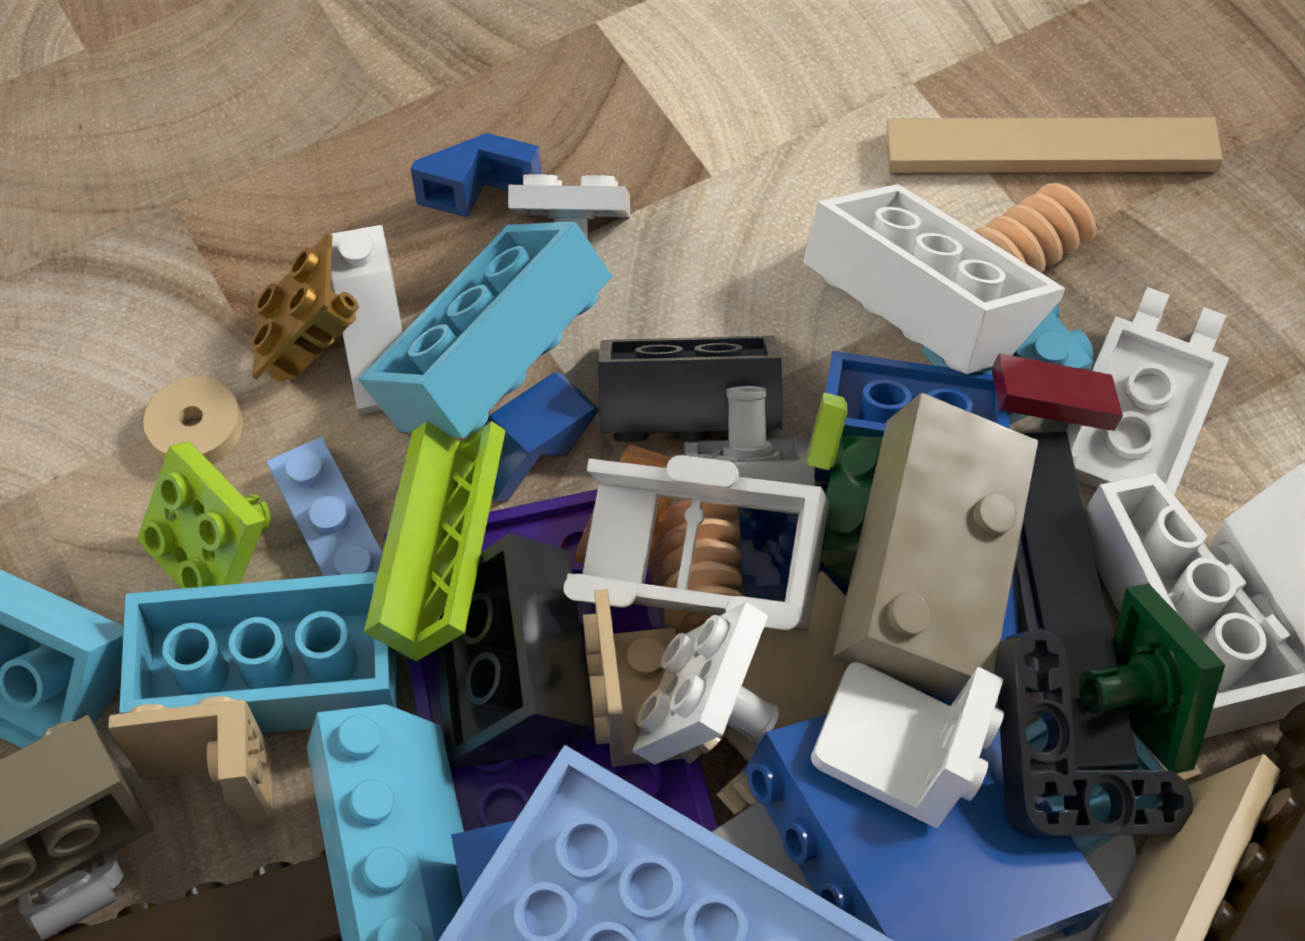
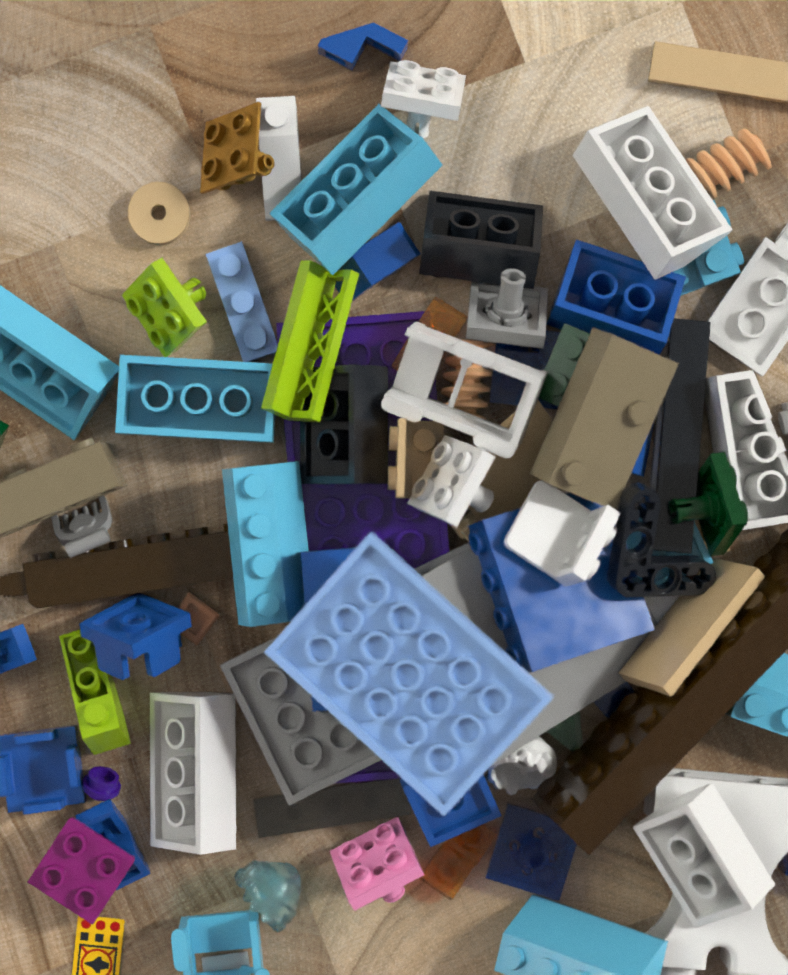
camera: 10 degrees right, 30 degrees up
(205, 737) = (181, 472): tan bracket -> none
(827, 431) = (556, 320): lime tile -> none
(1056, 392) = (709, 298): dark red tile -> none

